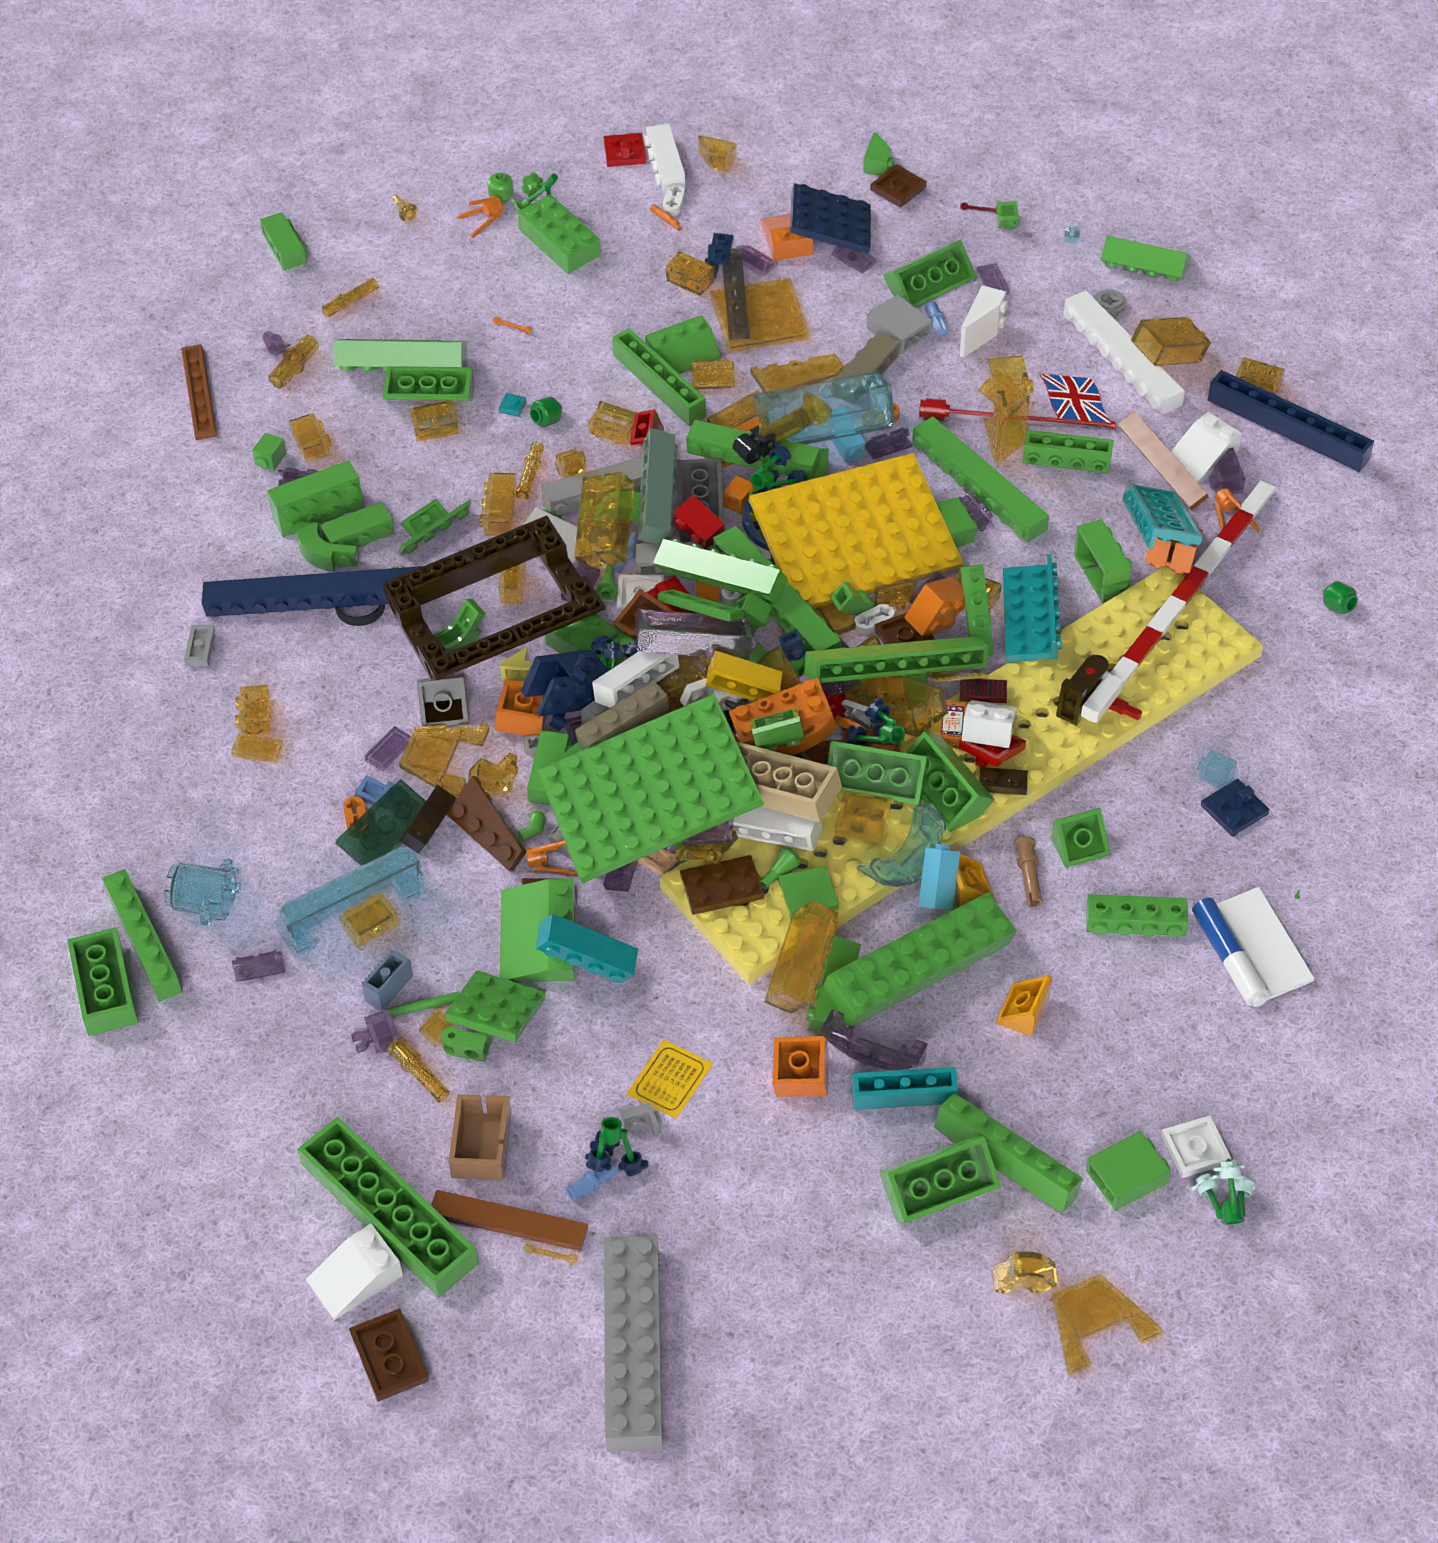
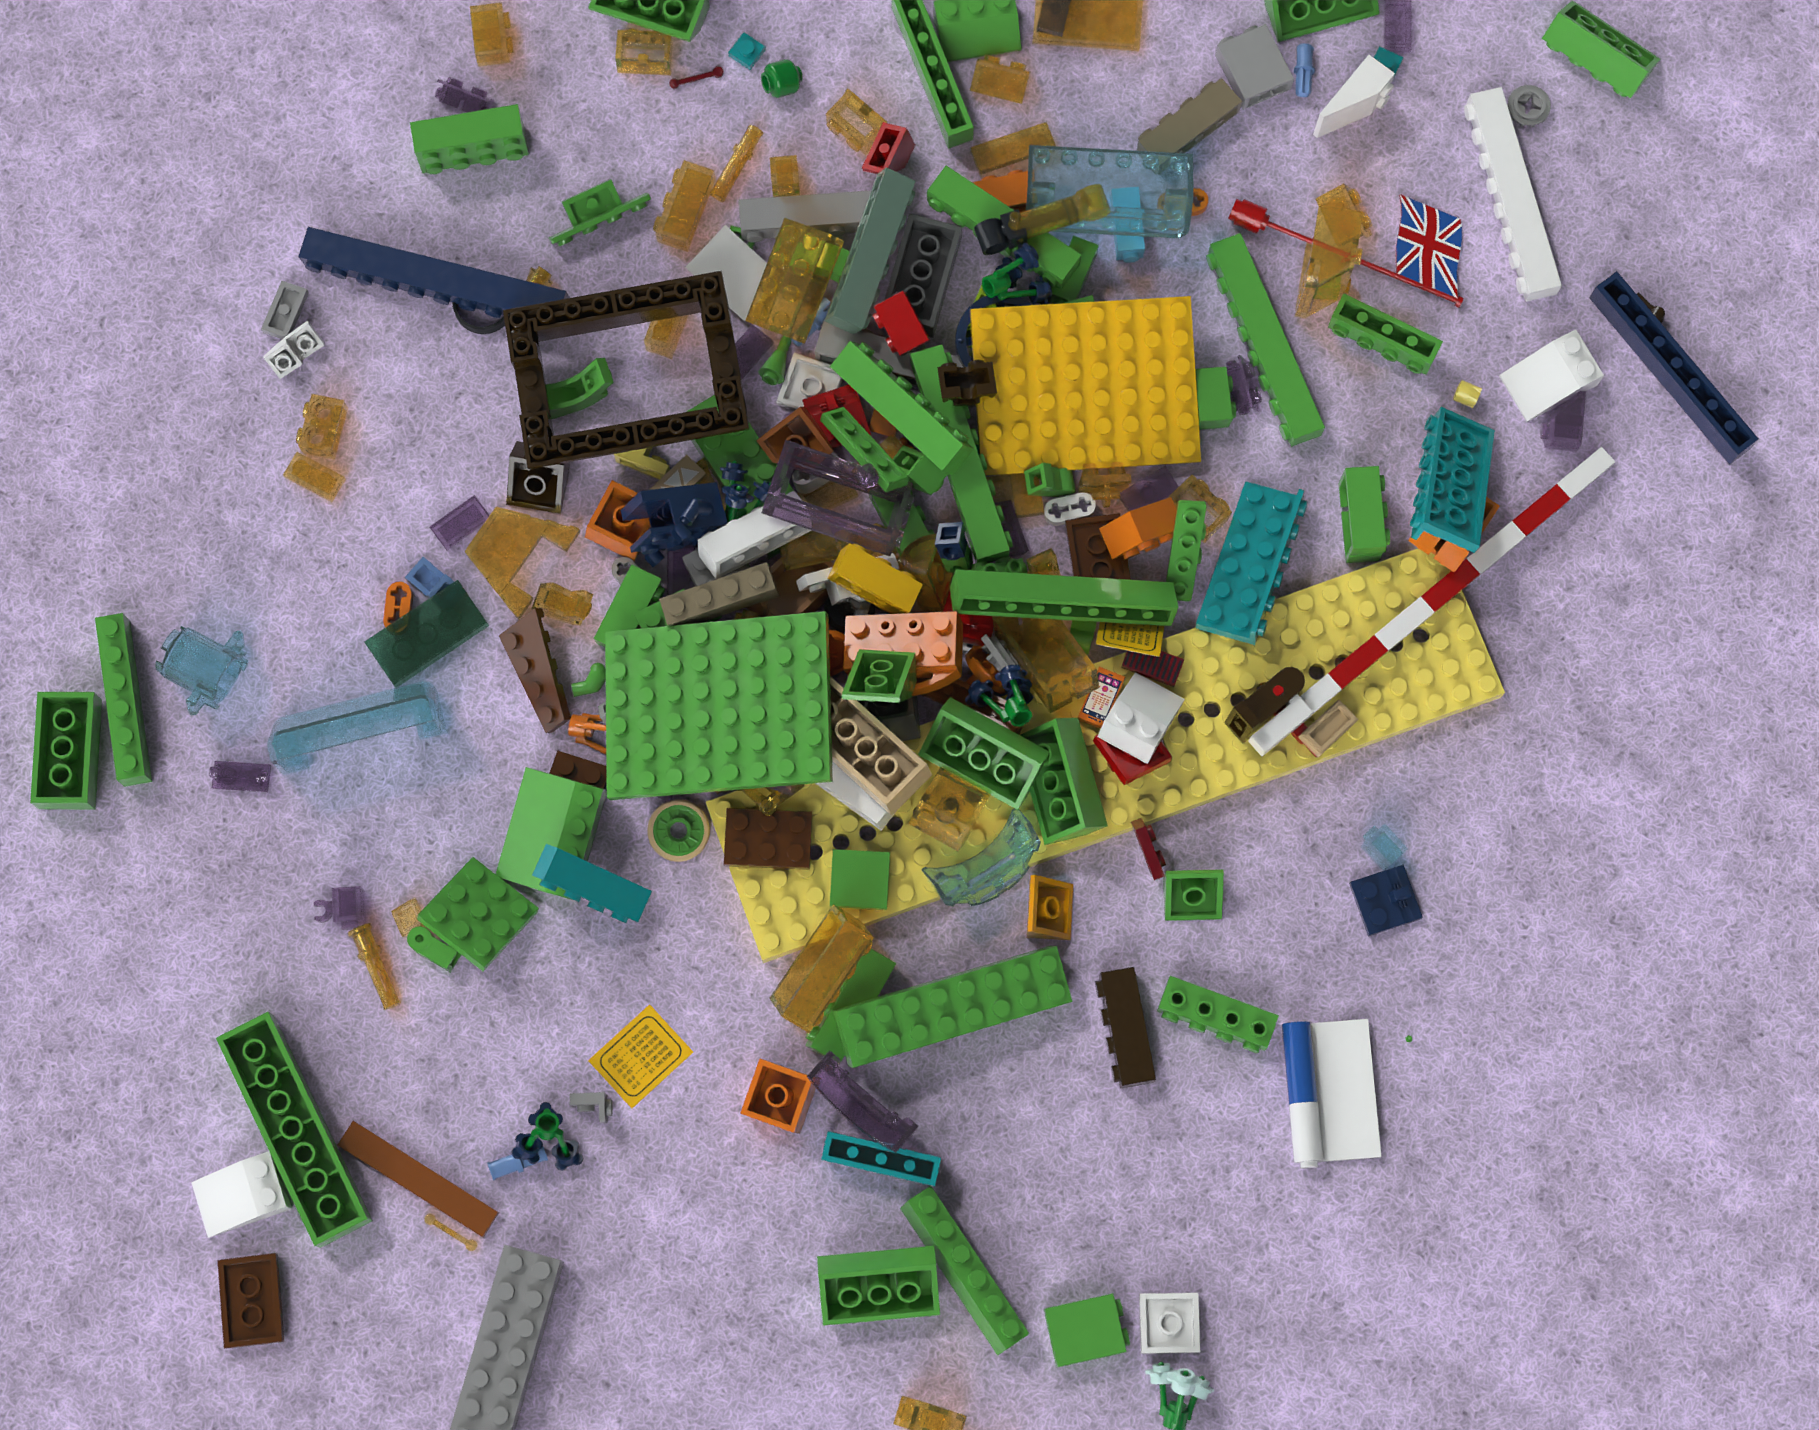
camera: 15 degrees right, 25 degrees up
(215, 667) = (292, 349): none -> white slope
(269, 451) = (436, 42): bright green brick -> none
(323, 554) = (448, 194): bright green arch -> none
(359, 527) = (508, 194): bright green brick -> none
(369, 920) = (373, 756): clear yellow brick -> none
(387, 979) = (370, 845): sand blue brick -> none
(422, 1004) = (403, 880): bright green bar -> none
(427, 819) = (475, 640): dark brown slope -> none
(479, 1137) = (413, 1076): medium nougat piece -> none
(494, 423) = (717, 72): none -> dark red hinge
(638, 920) = (686, 847): none -> bright green wheel
(710, 613) = (867, 476): none -> clear purple hinge
(736, 494) = (969, 276): orange brick -> none
(767, 541) = (968, 383): none -> dark brown cylinder
(785, 862) = (844, 835): bright green cone -> none
(797, 372) = (1092, 109): clear yellow wing -> none
(885, 445) = (1176, 251): clear purple hinge -> none
(939, 877) = (1010, 907): medium azure brick -> none
(1004, 780) = (1130, 797): dark brown plate -> none
(1025, 1004) = (1050, 1088): light orange slope -> none
(1027, 862) = (1123, 904): medium nougat pin -> none
(1032, 815) = (1145, 837): none -> dark red plate
(1068, 945) = (1126, 1027): none -> dark brown brick
(1139, 695) = (1328, 728): none -> tan tile
(1145, 475) = (1467, 393): none -> light yellow hose
(1163, 460) = (1497, 377): tile -> none
(1170, 341) = (1574, 203): clear yellow brick -> none
(1227, 502) = (1550, 464): orange plant -> none
(1261, 374) = (1659, 292): clear yellow brick -> none
(1340, 597) = (1625, 649): green head -> none

